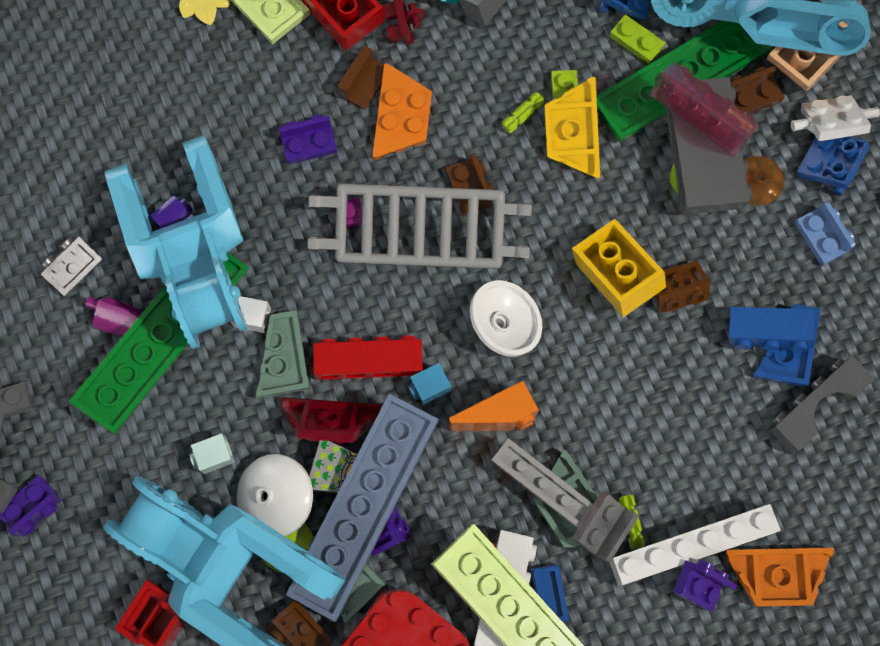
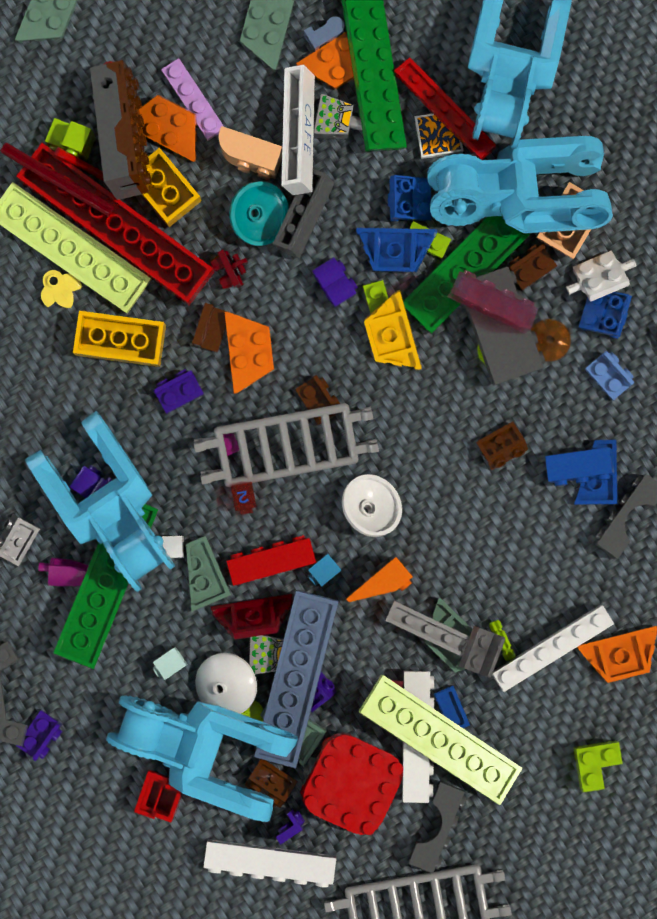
camera: 10 degrees left, 10 degrees up
(255, 64) = (119, 338): none -> yellow brick
(354, 276) = (244, 498): none -> clear red brick
(519, 59) = (334, 282): none -> dark purple brick
(523, 112) = (347, 326): lime axle -> none
(601, 36) = (396, 248): none -> blue wing
(619, 267) = (451, 445): yellow brick -> none
(702, 584) = (562, 678): dark purple bracket -> none

